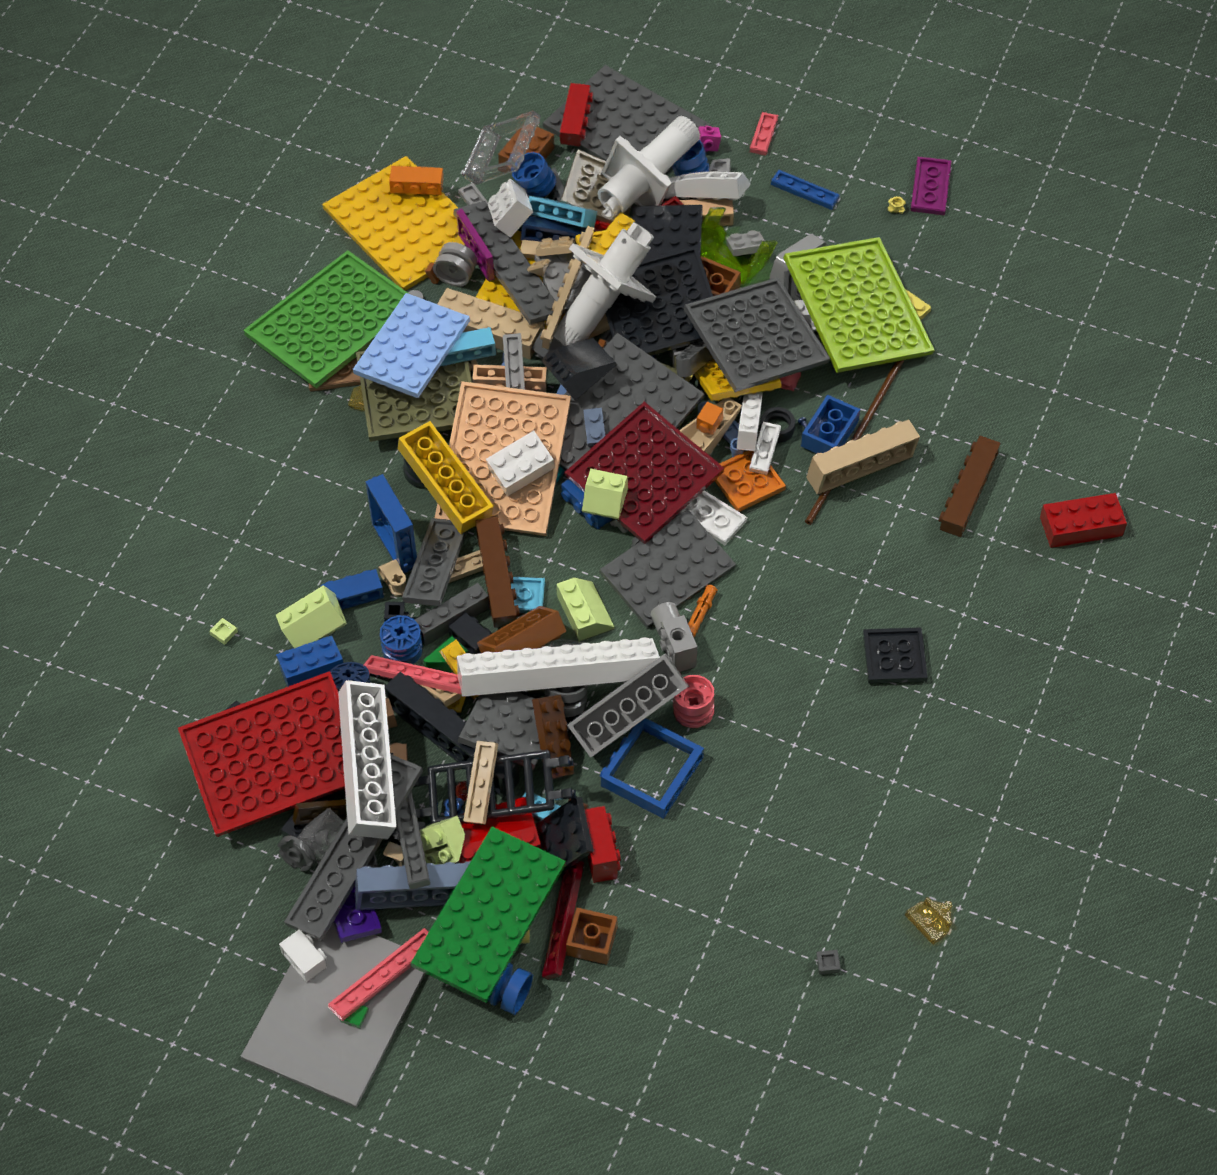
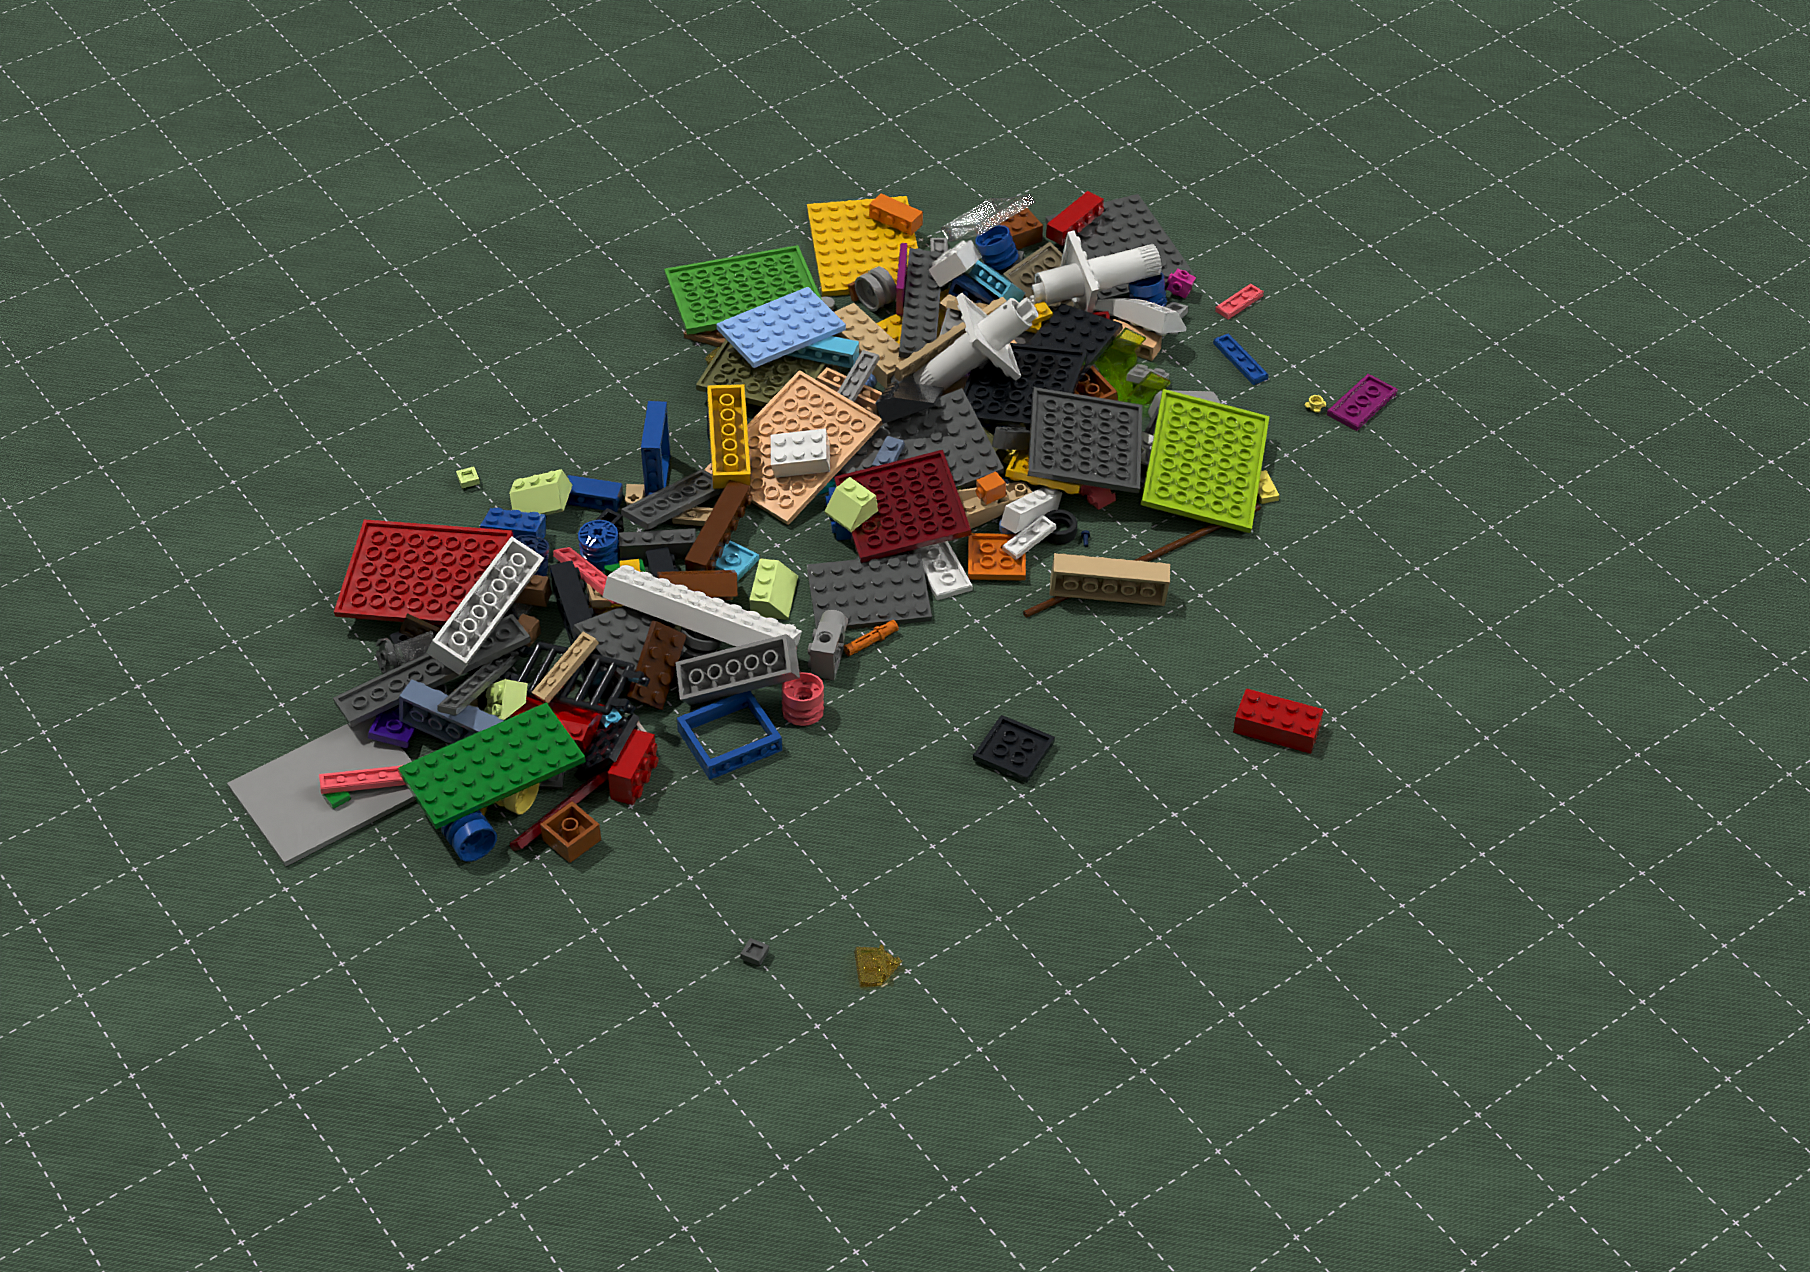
camera: 30 degrees right, 10 degrees down
(303, 955) = (331, 733): white brick -> none
(539, 267) = (941, 317): tan slope -> none
(830, 425) = (1105, 540): blue brick -> none
(969, 486) = (1194, 648): reddish brown brick -> none

